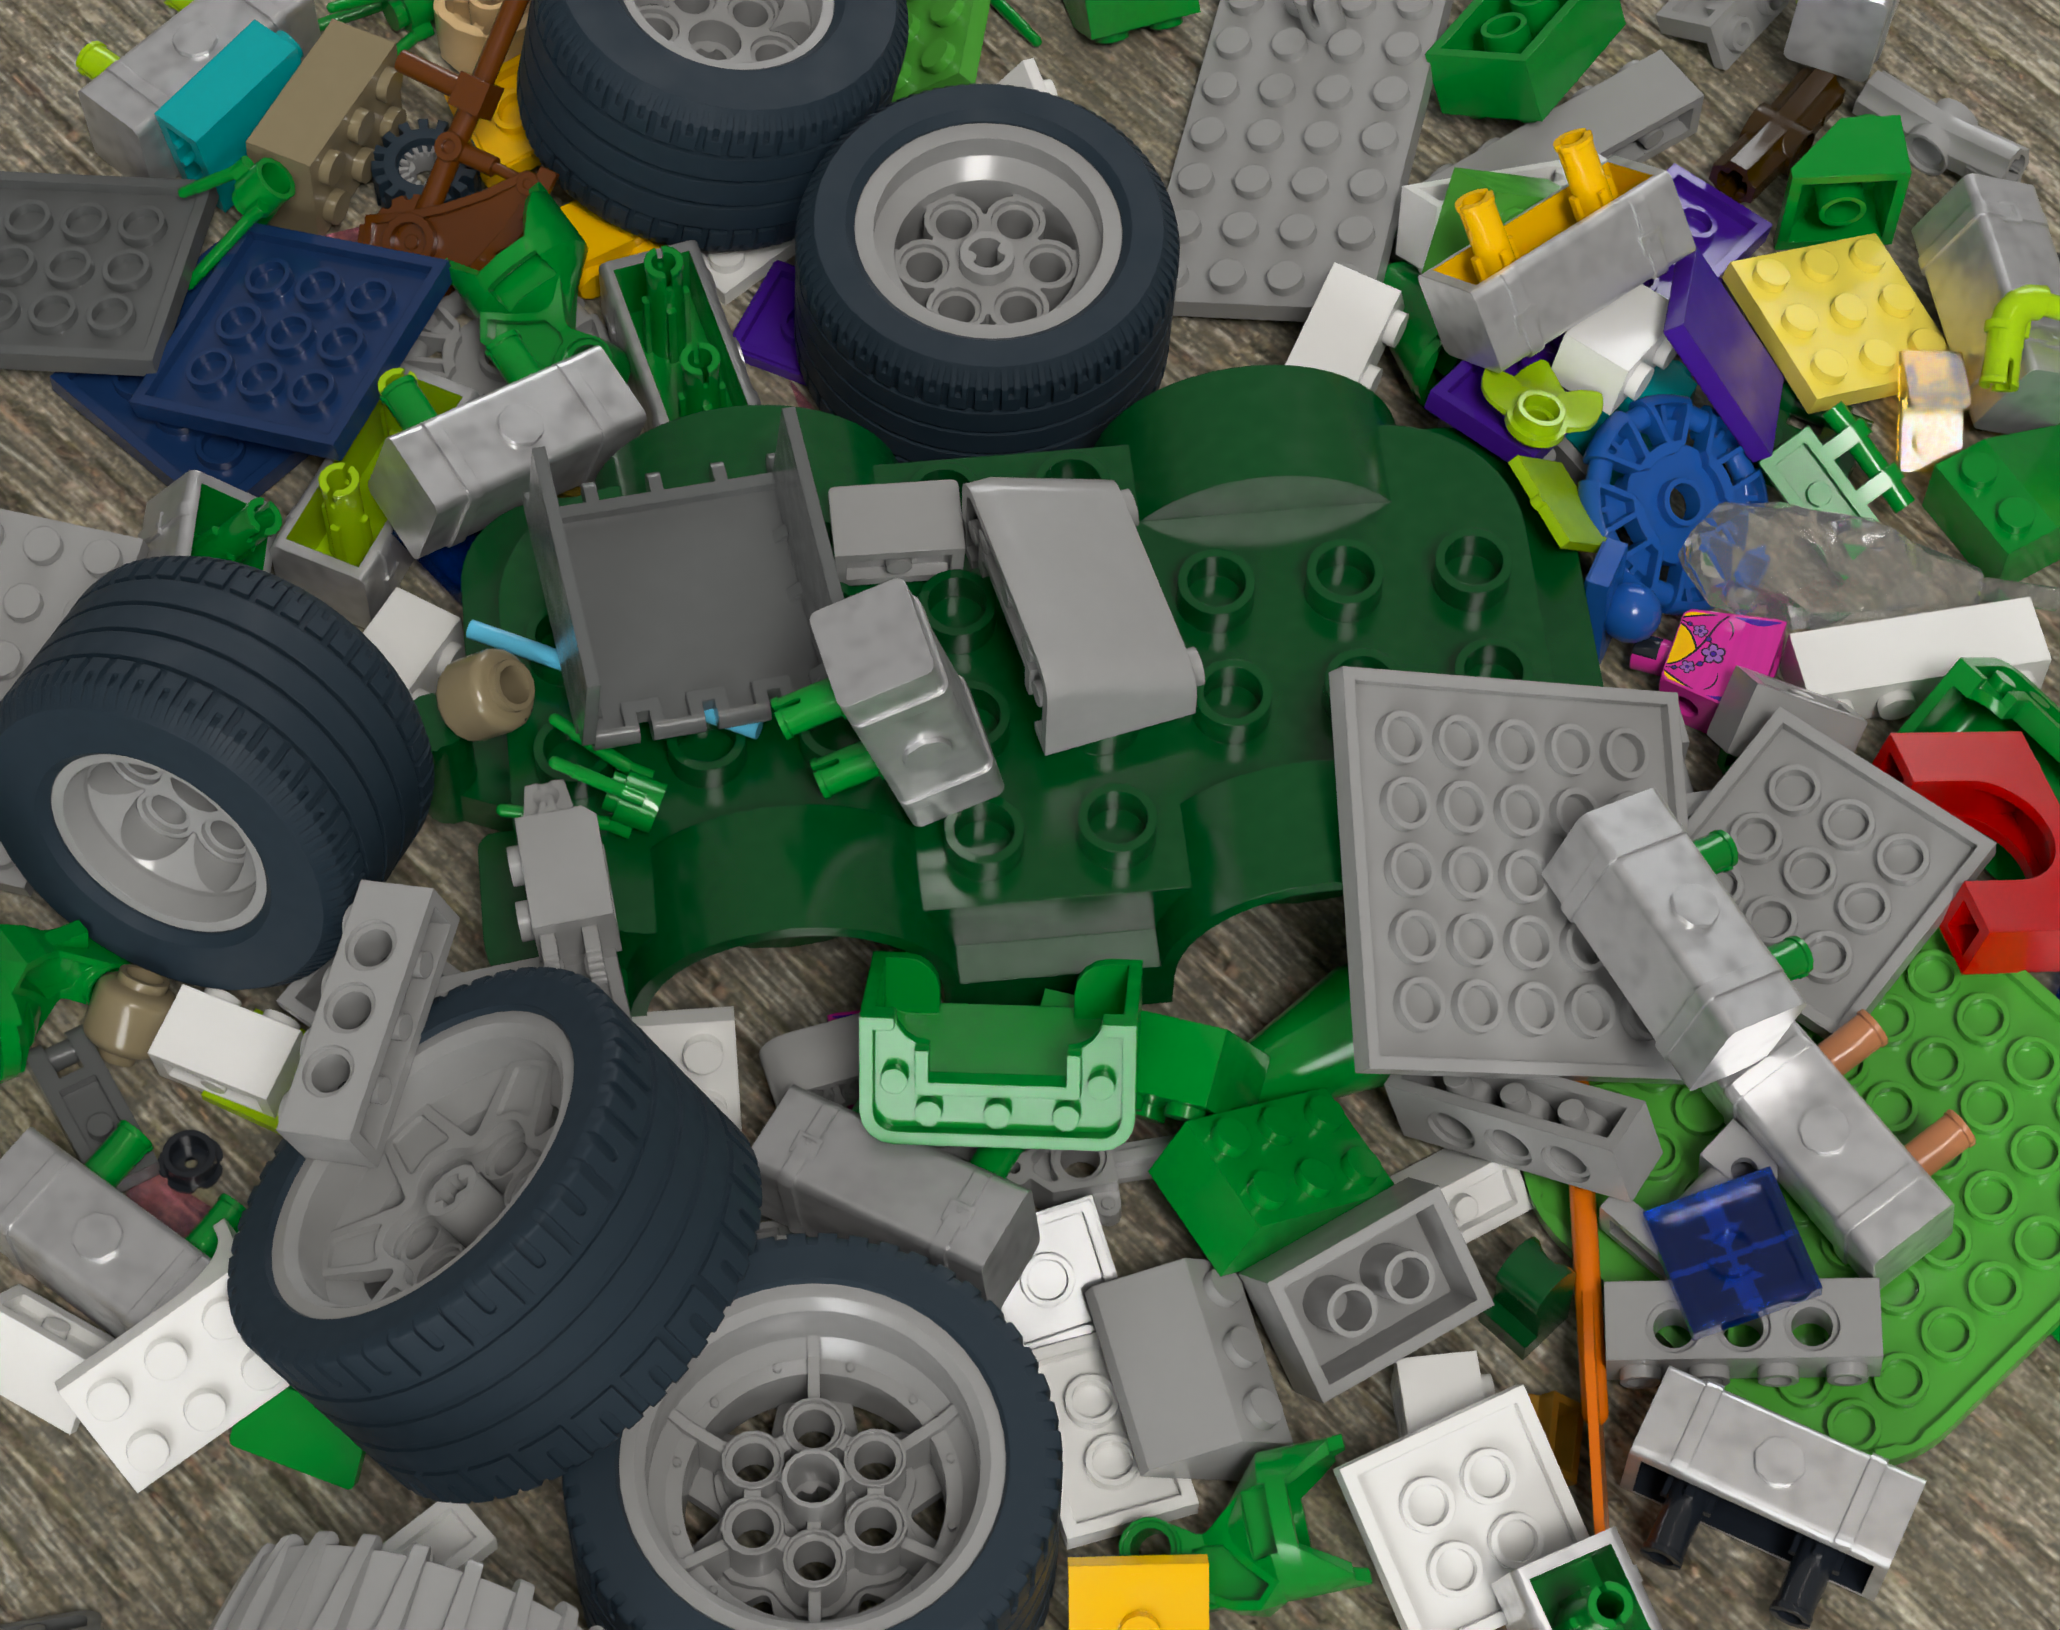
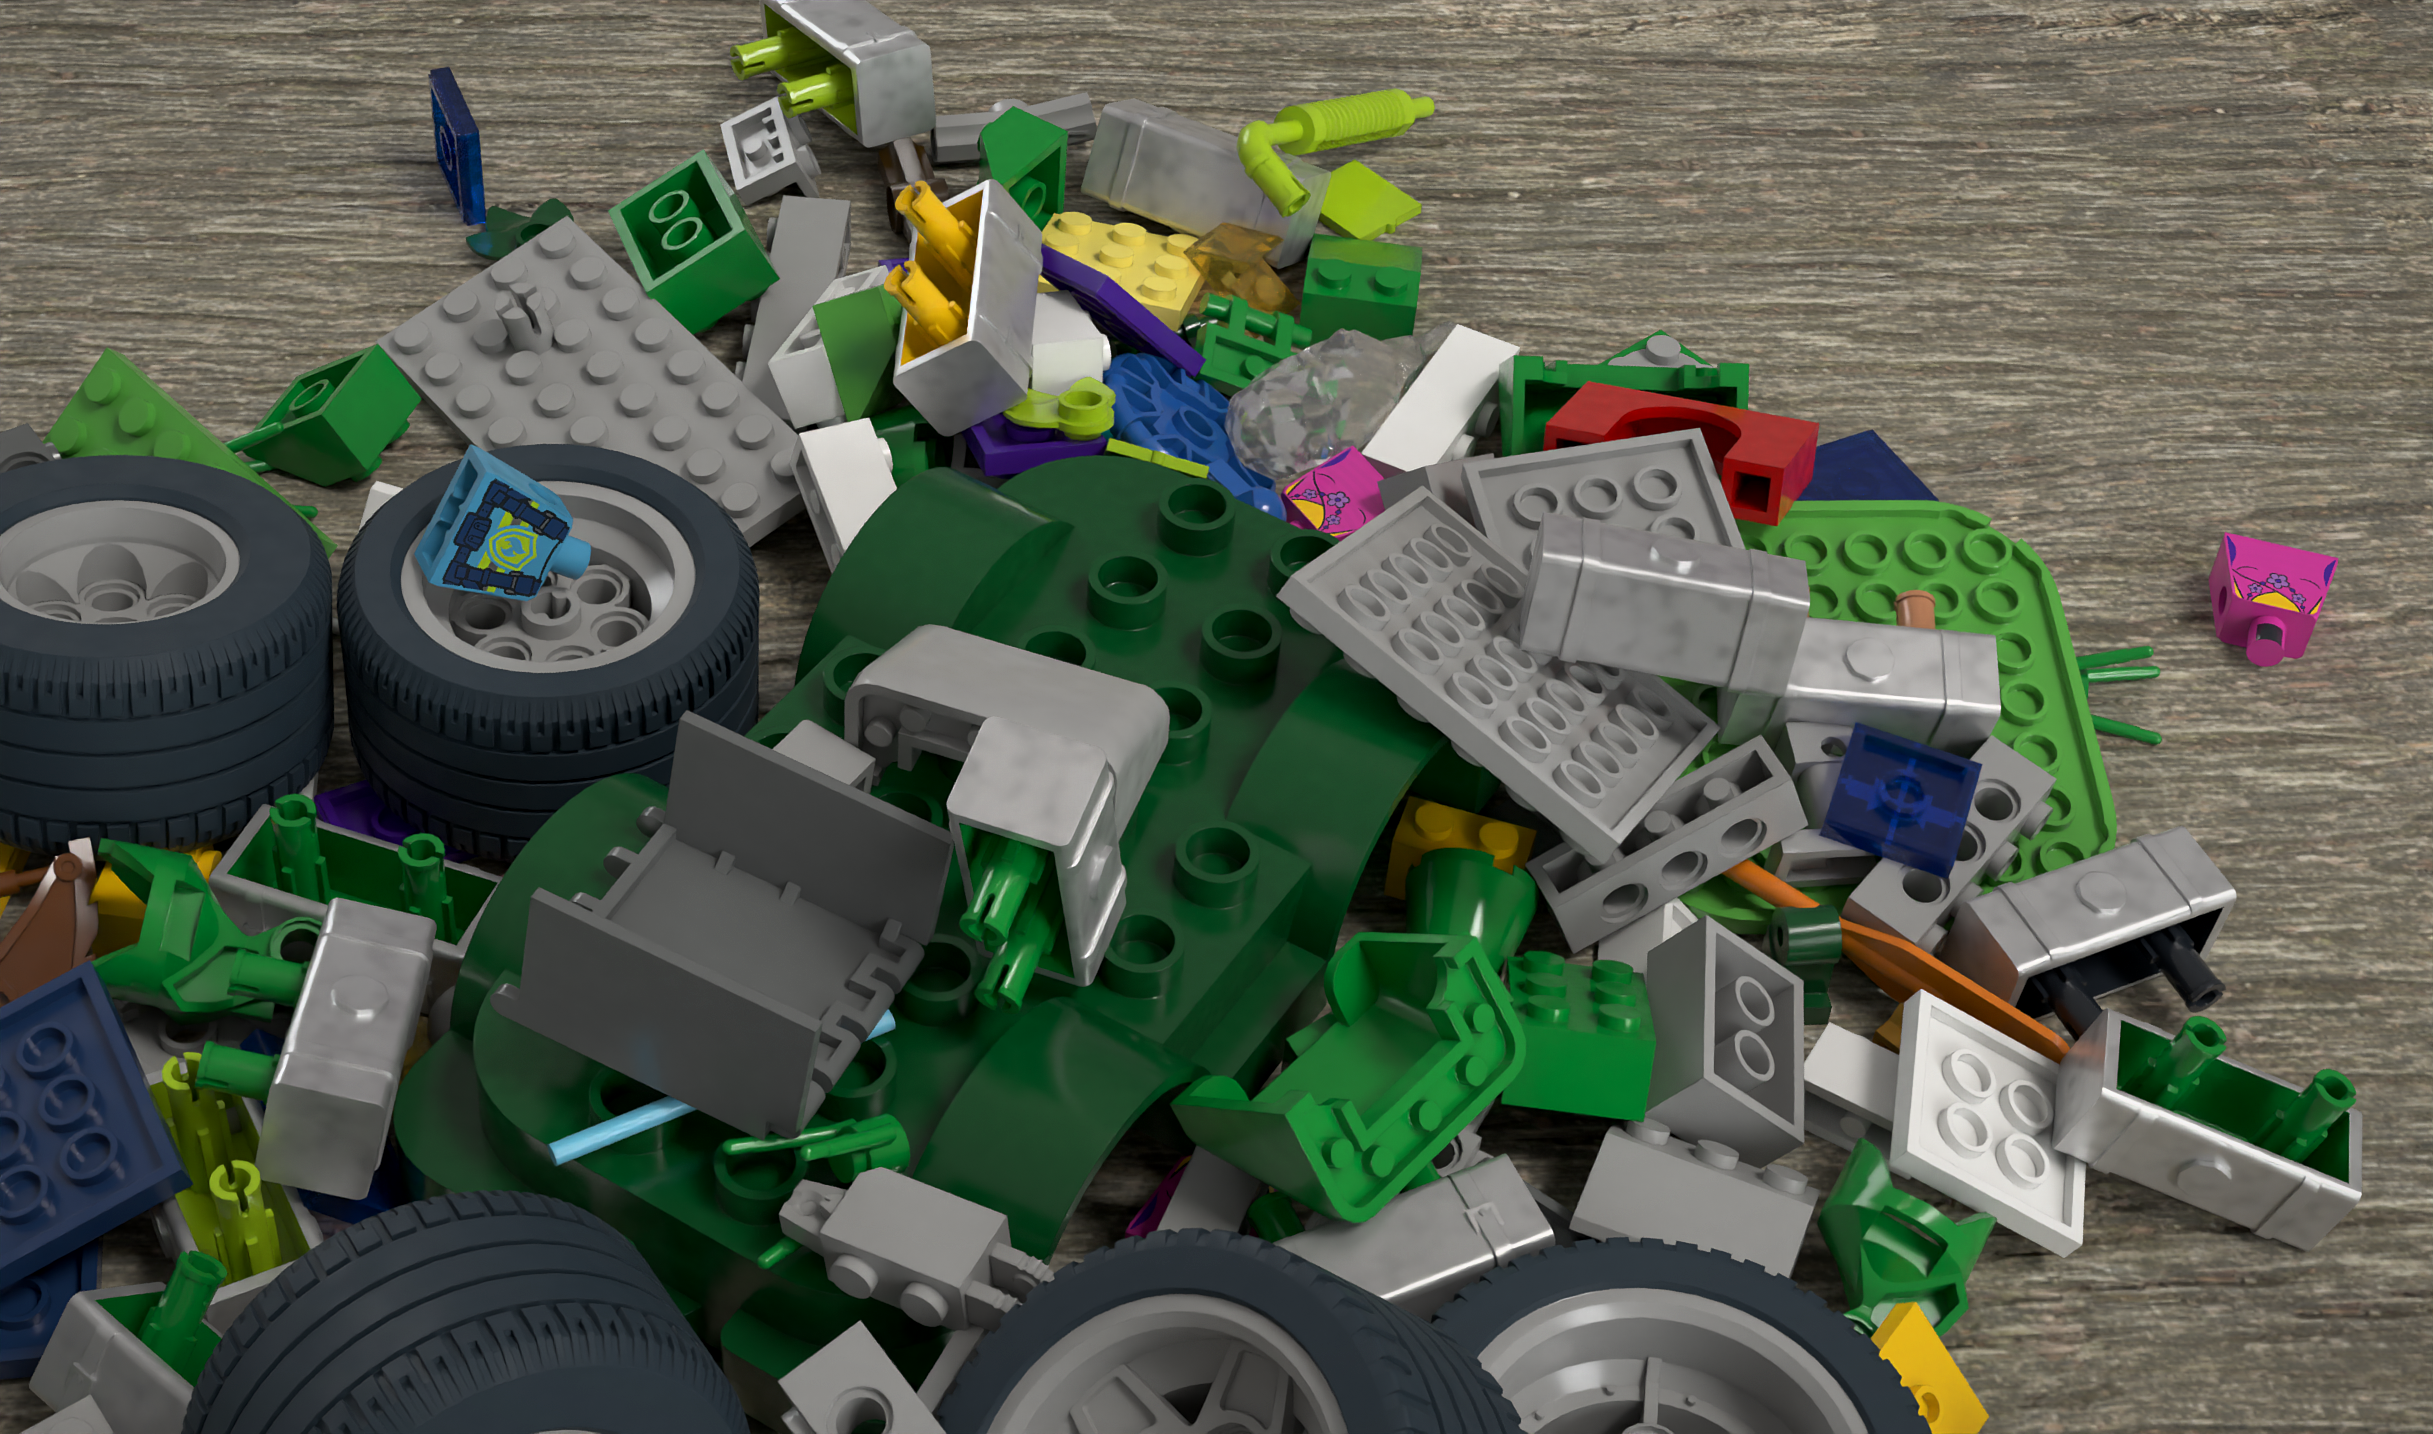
camera: 55 degrees left, 15 degrees down
(485, 694) = (641, 1184): dark tan head -> none
(977, 172) = (499, 532): none -> torso

